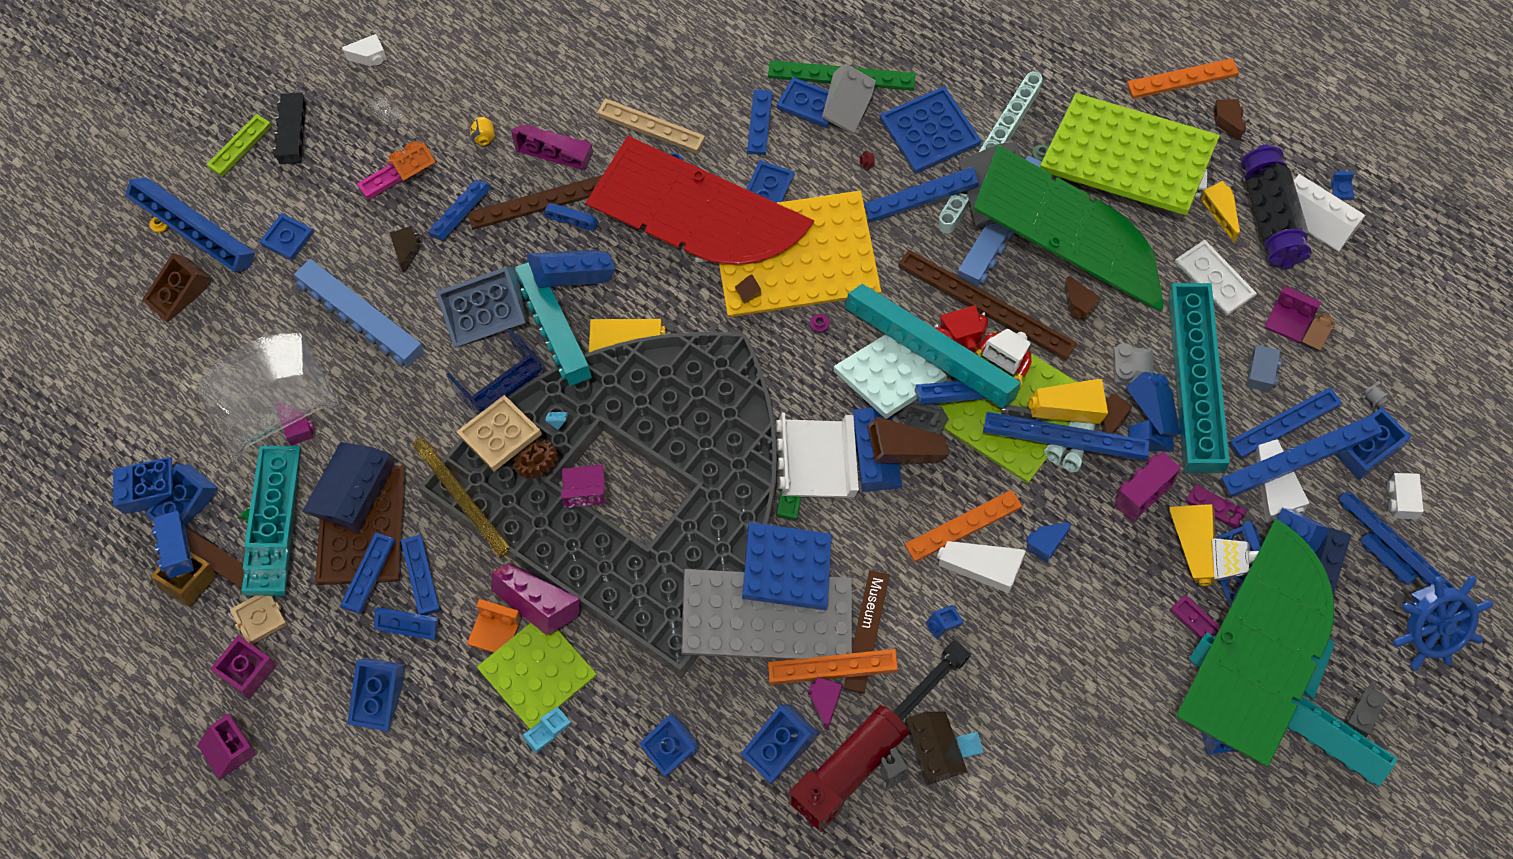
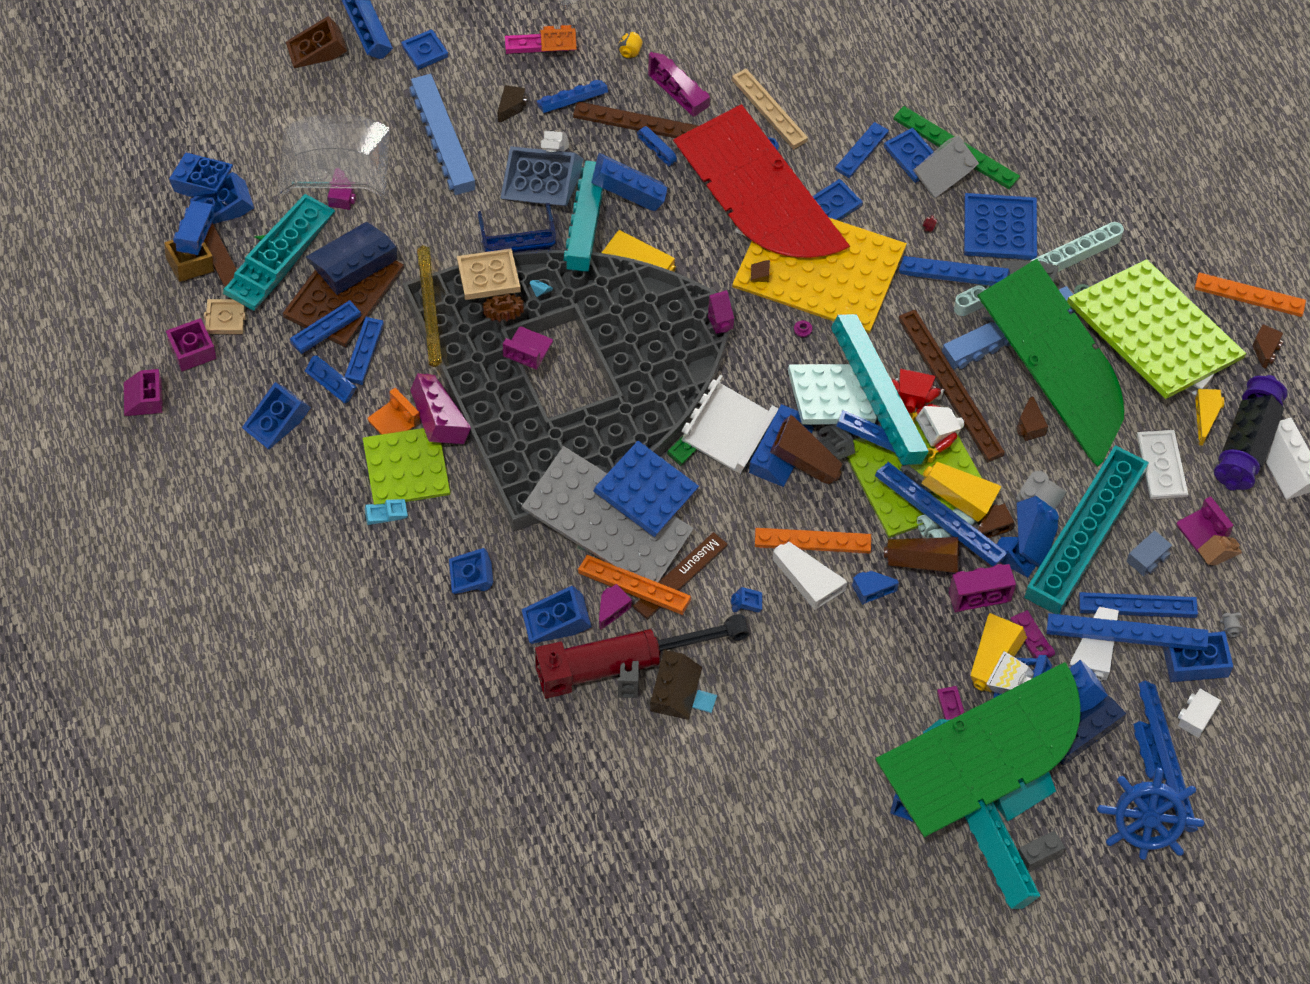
camera: 25 degrees right, 5 degrees down
(477, 265) = (555, 141): none -> white slope
(745, 351) = (720, 312): none -> magenta slope
(1076, 482) = (924, 553): none -> reddish brown slope

